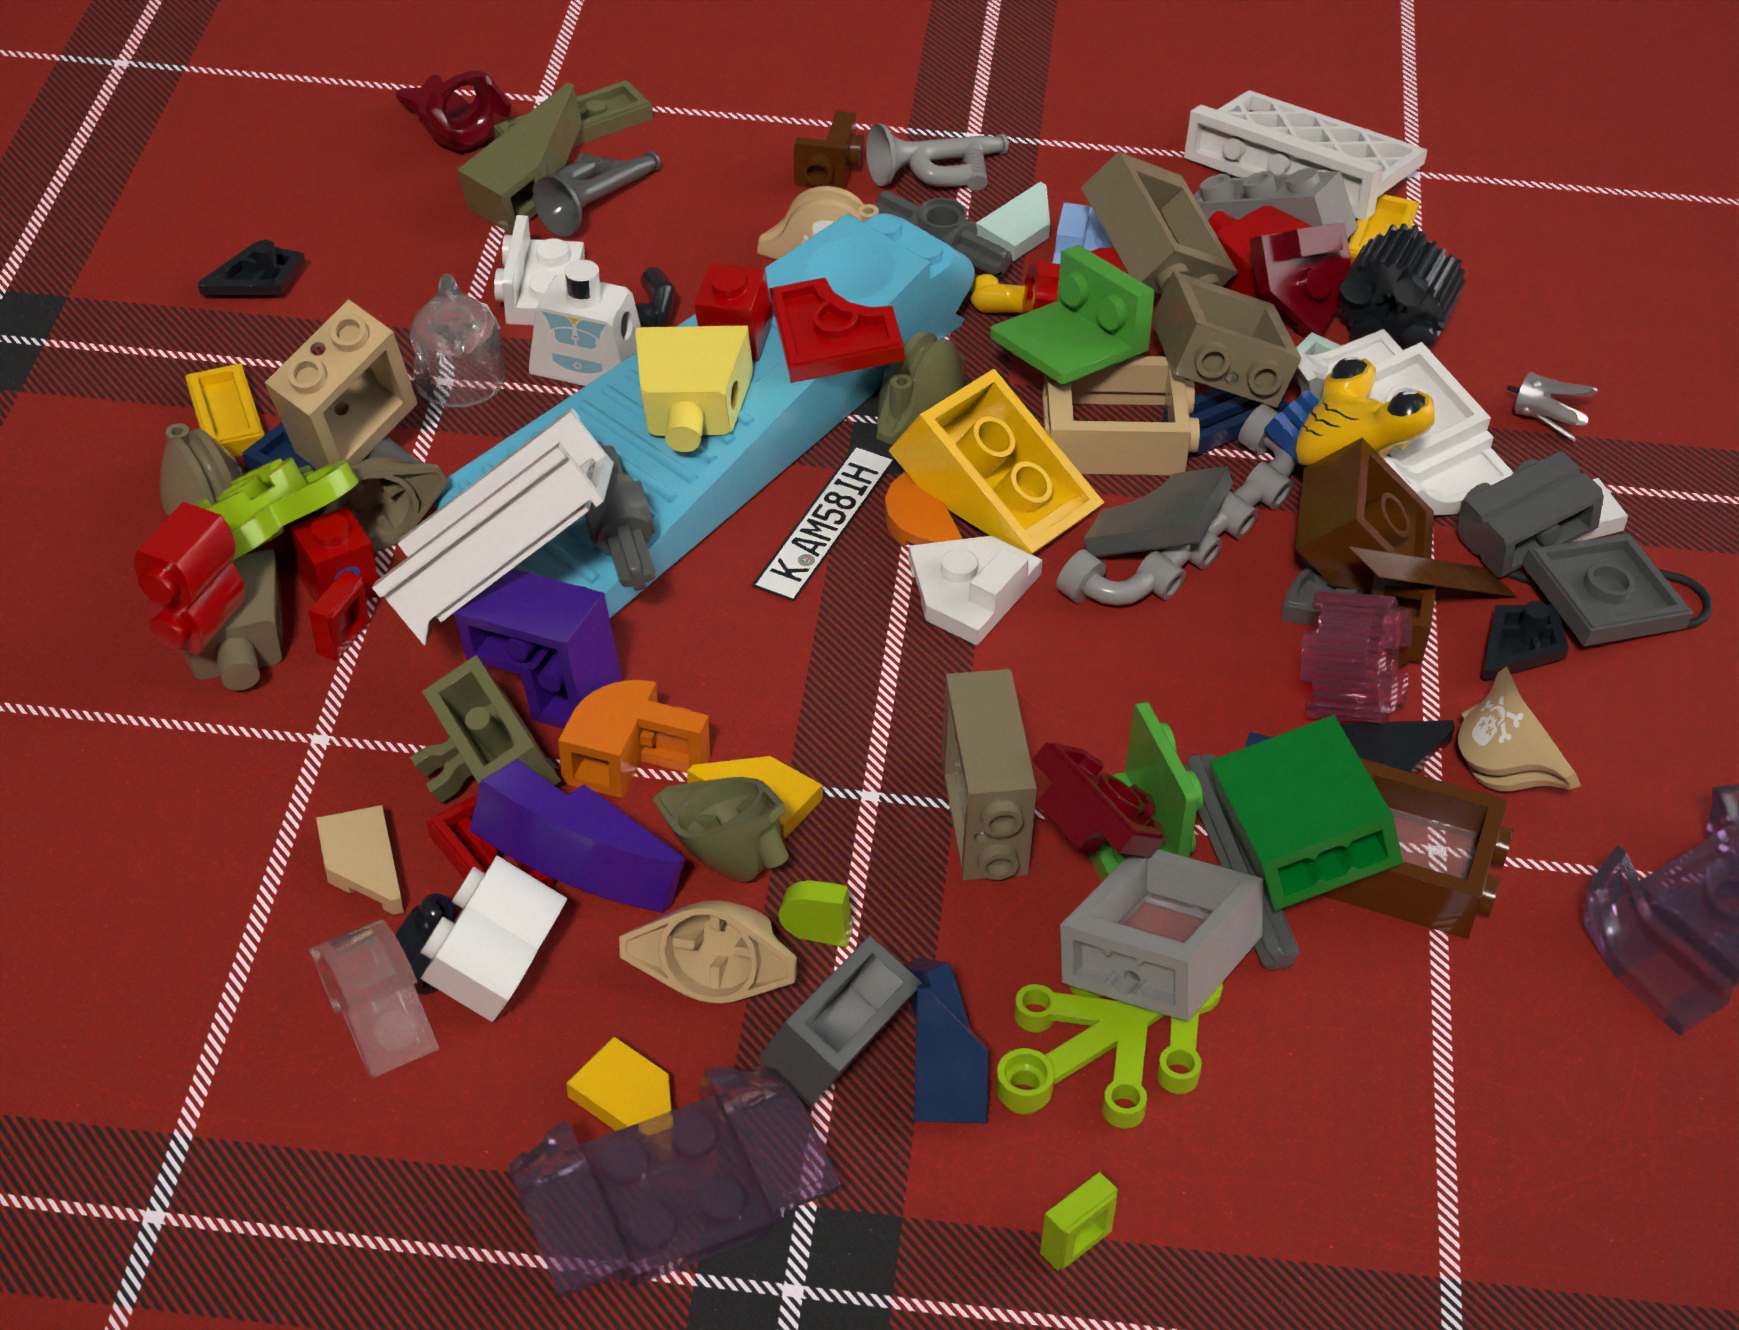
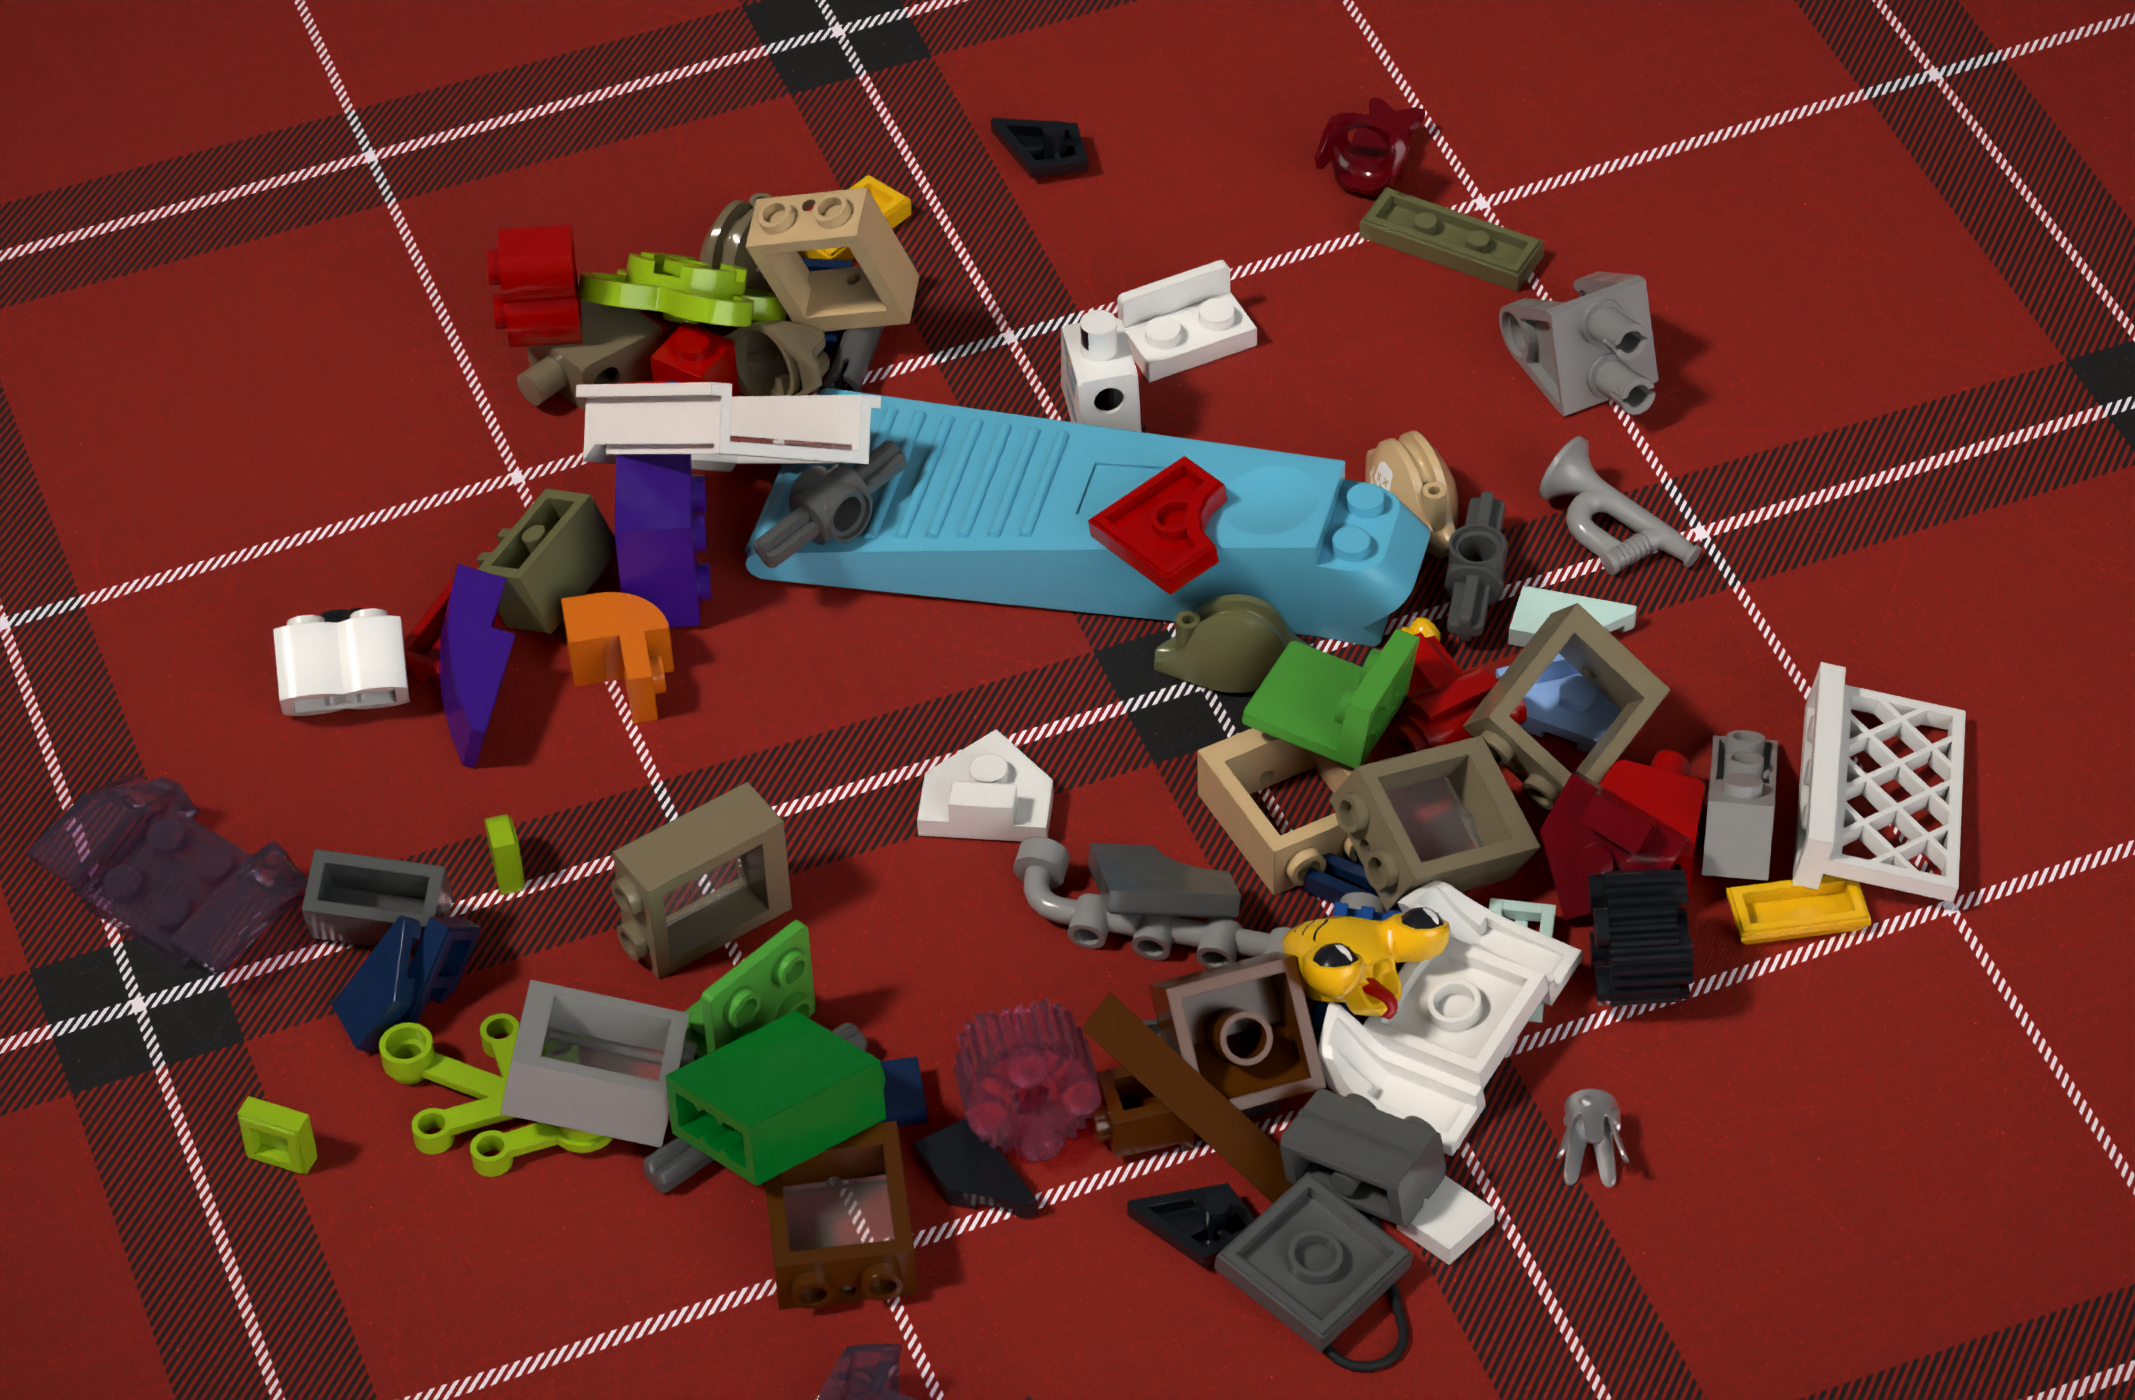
camera: 65 degrees right, 0 degrees up
(360, 855) = (399, 558): tan tile -> none
(376, 992) = (239, 621): clear brick -> none
(456, 348) = (1019, 315): clear piece -> none
(503, 175) = (1327, 232): olive slope -> none
(563, 195) = (1329, 289): dark grey piece -> none
(620, 1087) = (261, 814): yellow tile -> none
(661, 299) = (1215, 414): black arm -> none
(693, 380) = (1015, 466): light yellow torso -> none
(711, 952) = (420, 798): tan hat -> none
(727, 824) = (545, 745): olive hat -> none
(736, 298) = (1121, 443): red brick -> none
(766, 91) = (1588, 345): none -> light grey piece
(793, 788) = (628, 764): yellow tile -> none
(823, 523) = (1009, 667): sticker -> none
(829, 161) = (1537, 436): reddish brown bracket -> none
(916, 515) = (1062, 720): orange tile -> none
(995, 466) = (1136, 742): yellow slope -> none
(1096, 806) = (680, 948): dark red plate -> none
(1509, 745) = (1035, 1248): tan hat -> none

